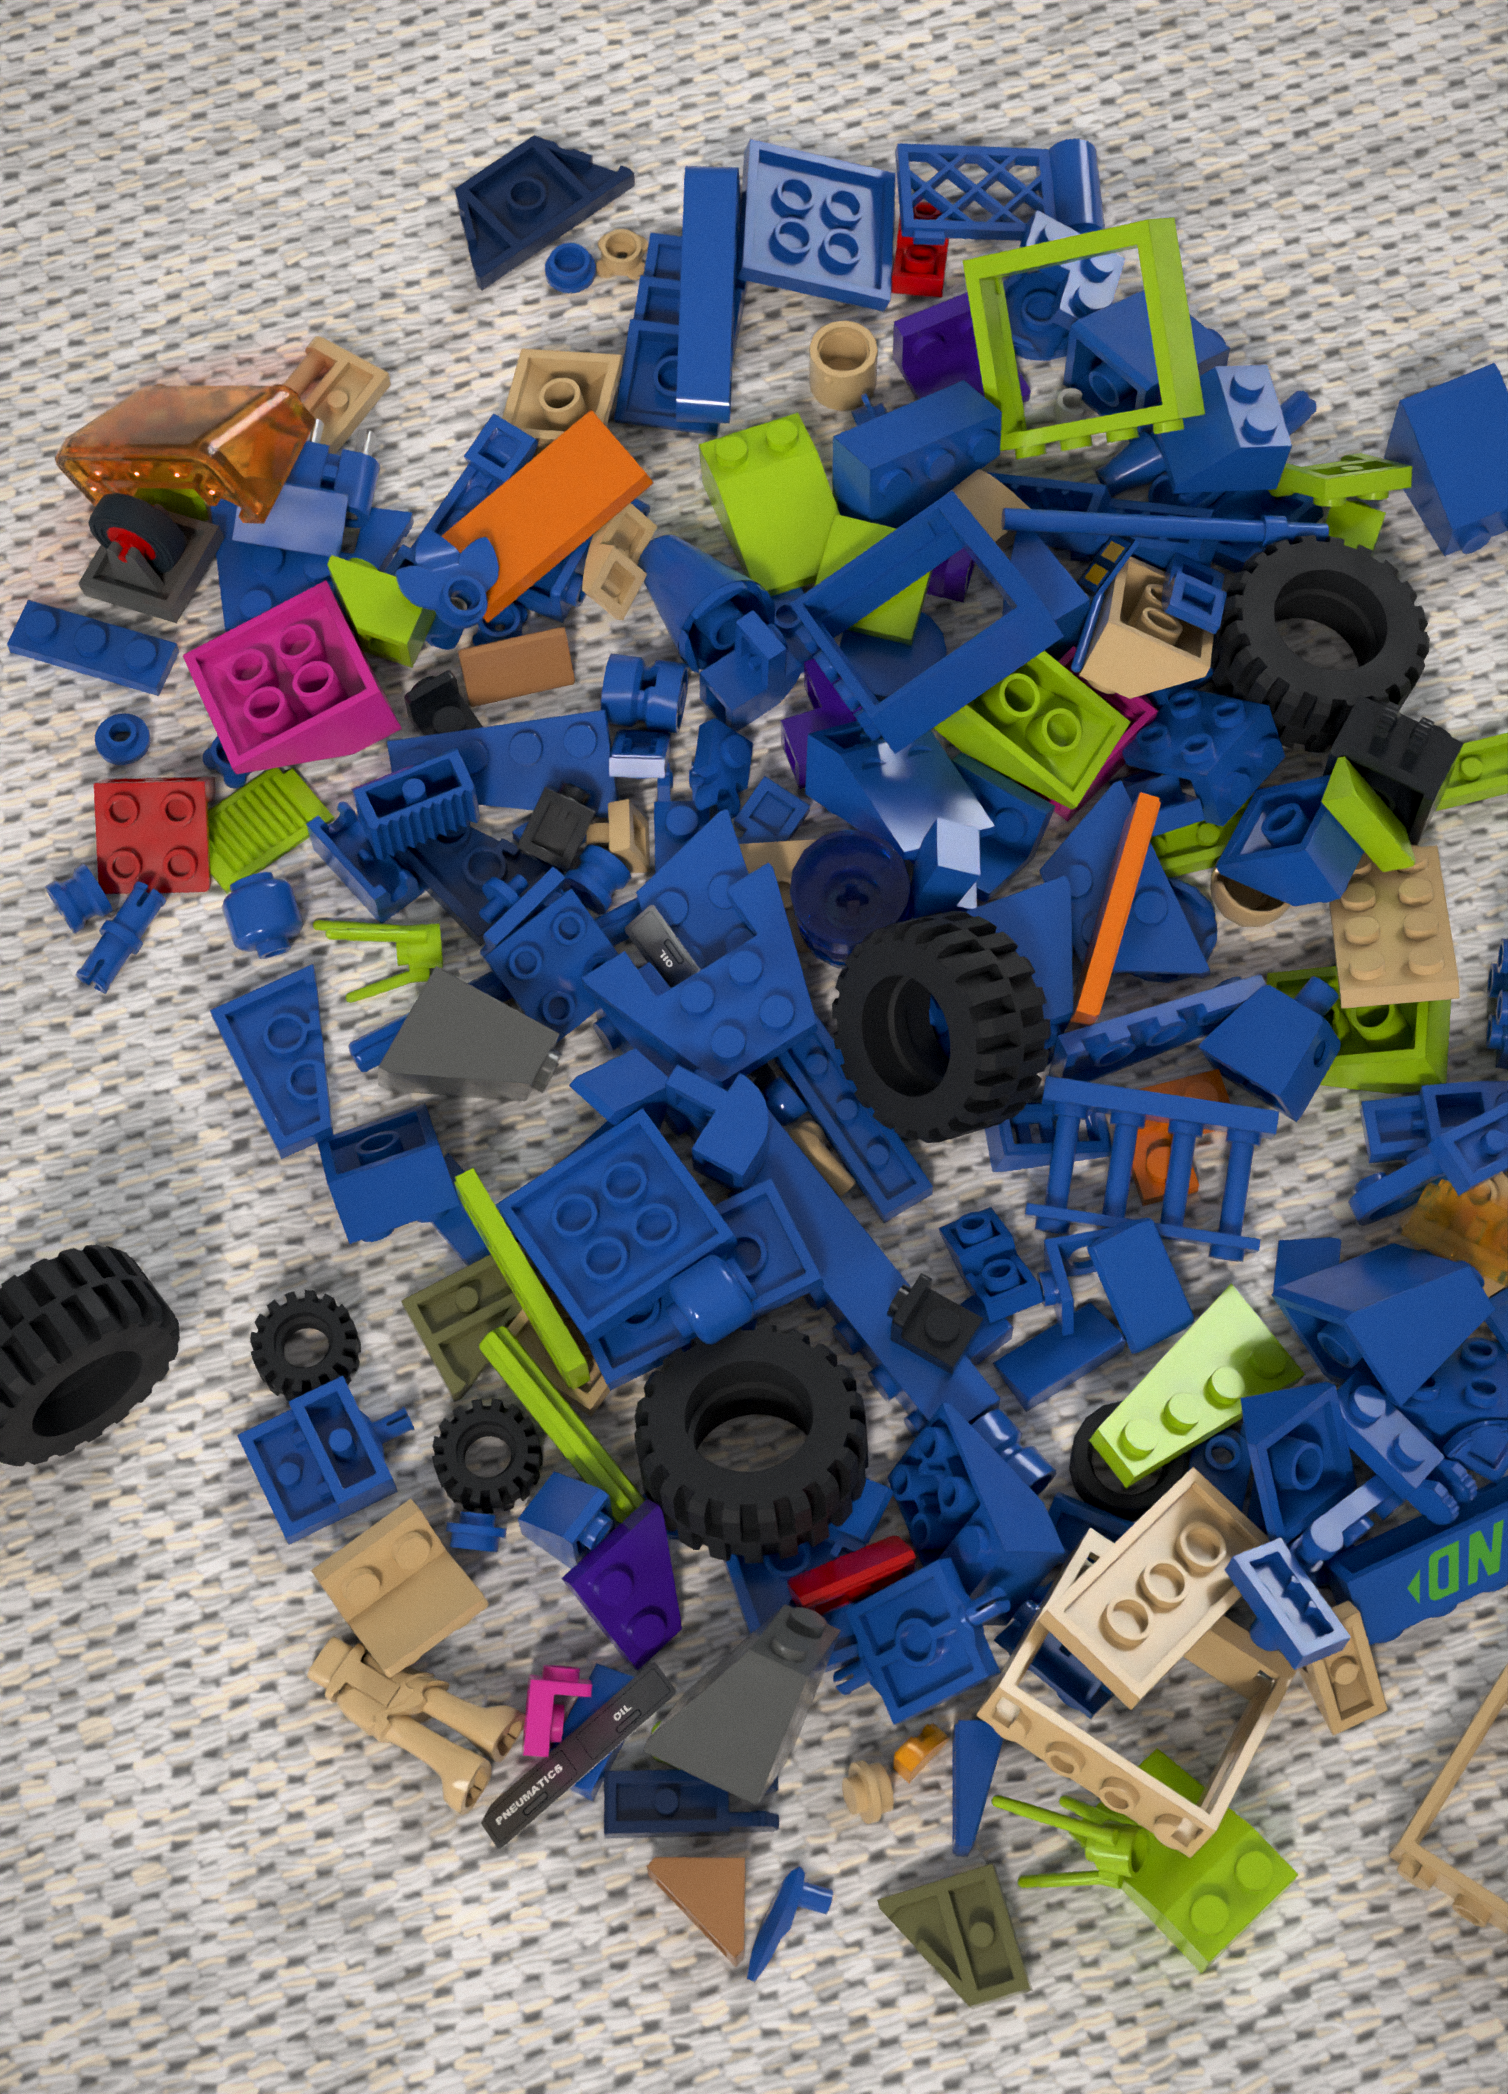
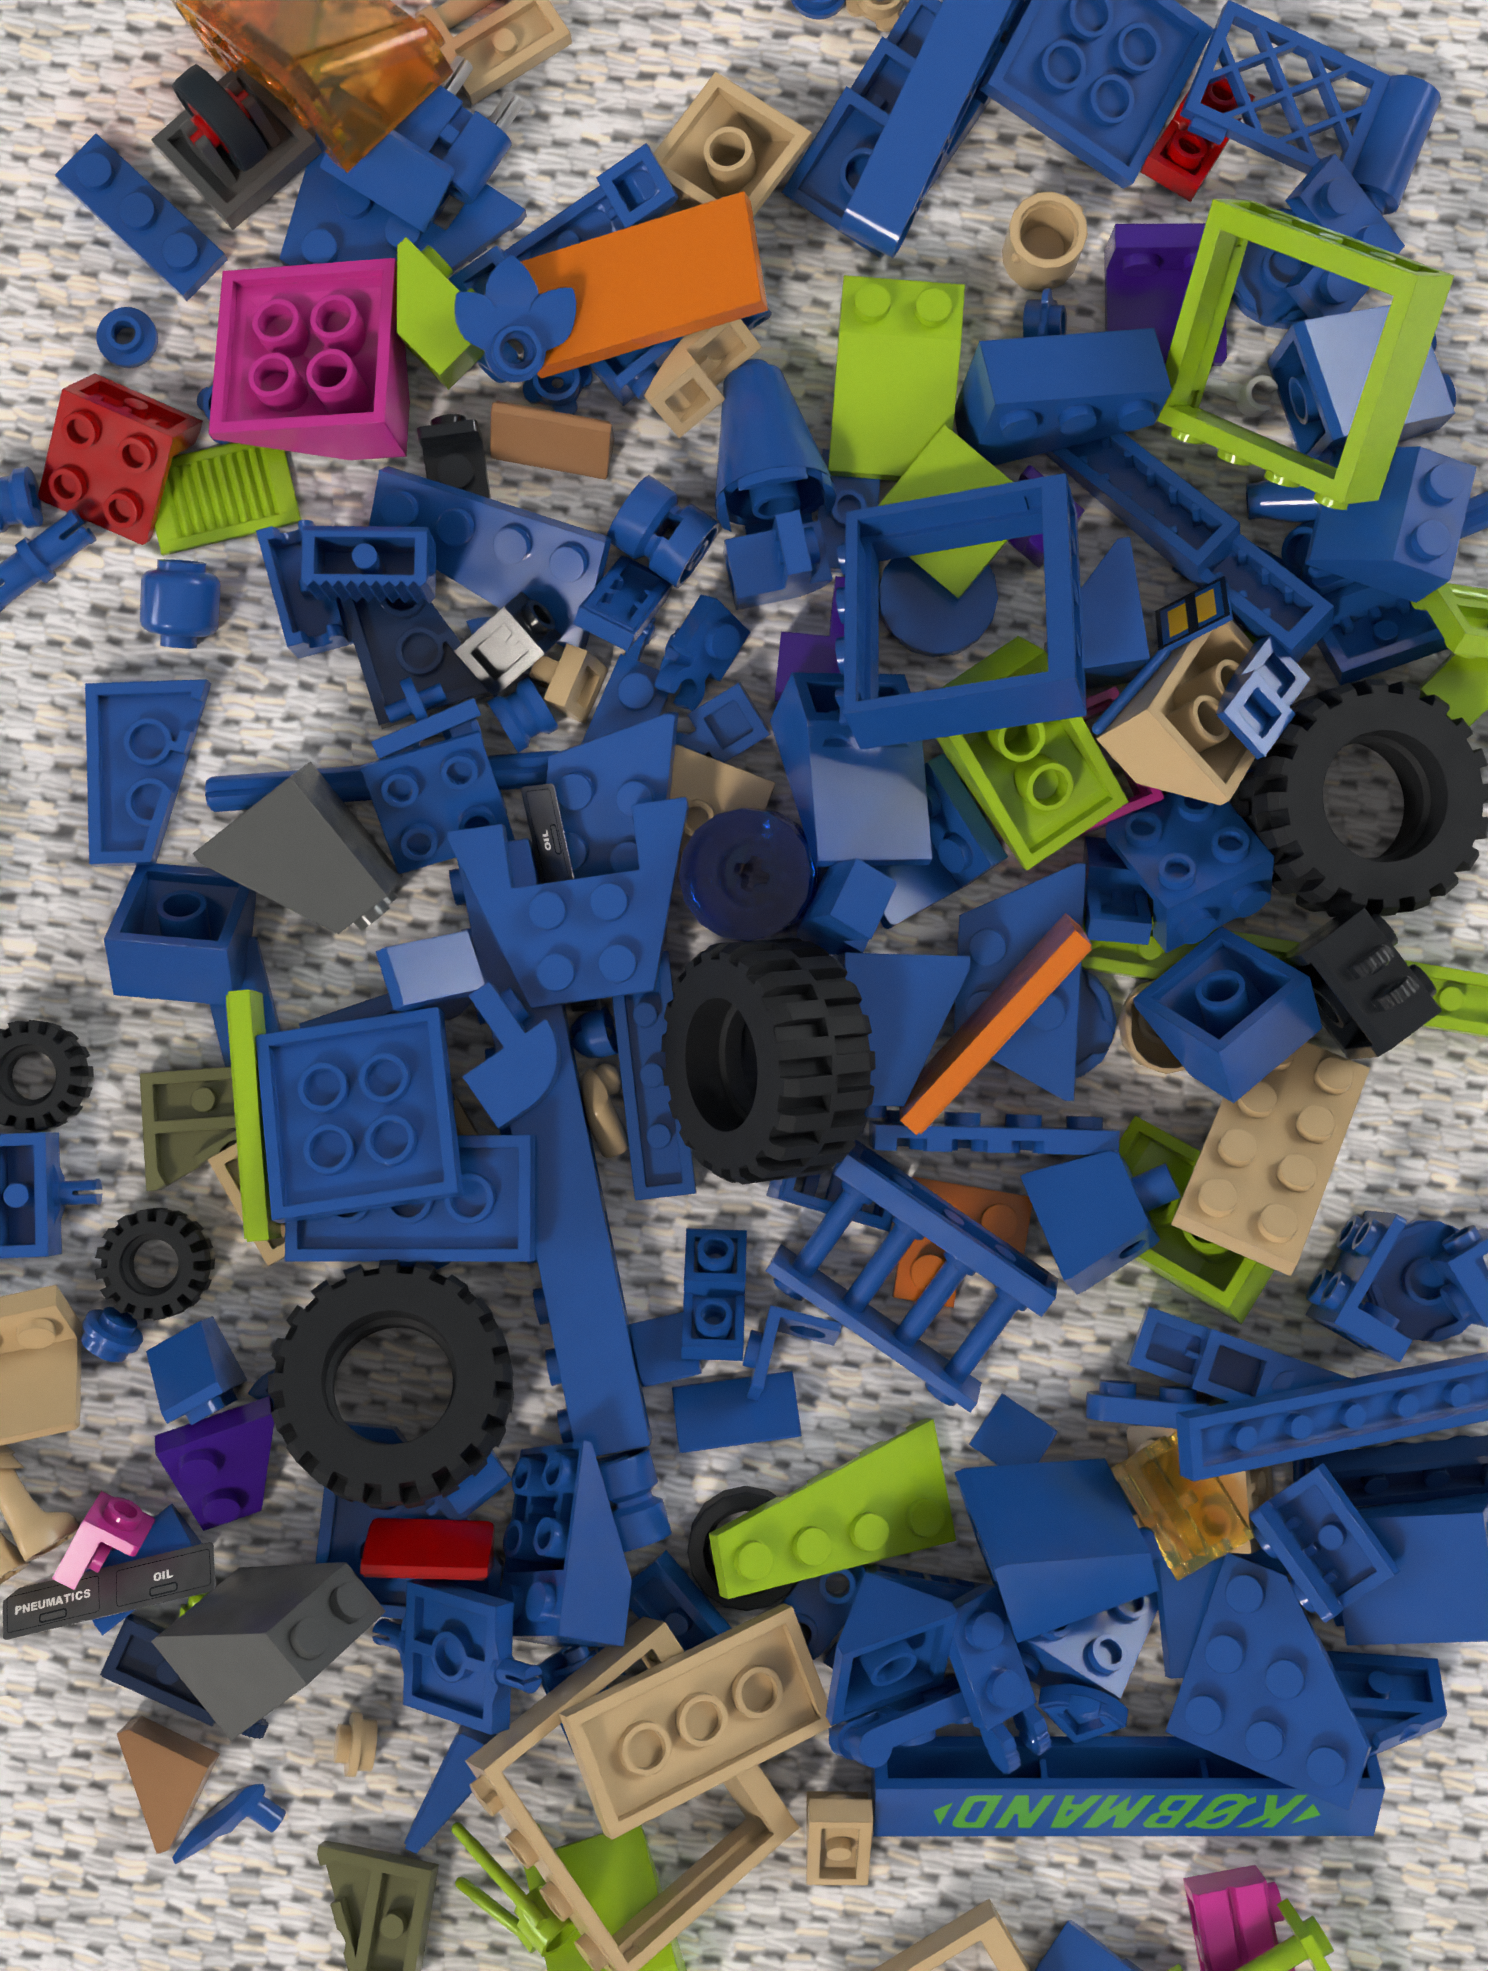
camera: 20 degrees right, 20 degrees up
(415, 946) = (317, 704): lime plant -> none
(560, 1421) = (231, 1271): lime axle -> none
(711, 1299) = (407, 1243): blue head -> none
(918, 1751) = (402, 1740): light orange tile -> none
(932, 1324) = (618, 1350): black bracket -> none
(985, 500) = (1103, 492): tan slope -> none
(1140, 1283) = (839, 1391): blue slope -> none
(1264, 531) = (1376, 659): blue bar -> none
(1286, 1605) = (805, 1792): blue tile -> none
(1367, 818) = (1307, 1032): lime slope -> none

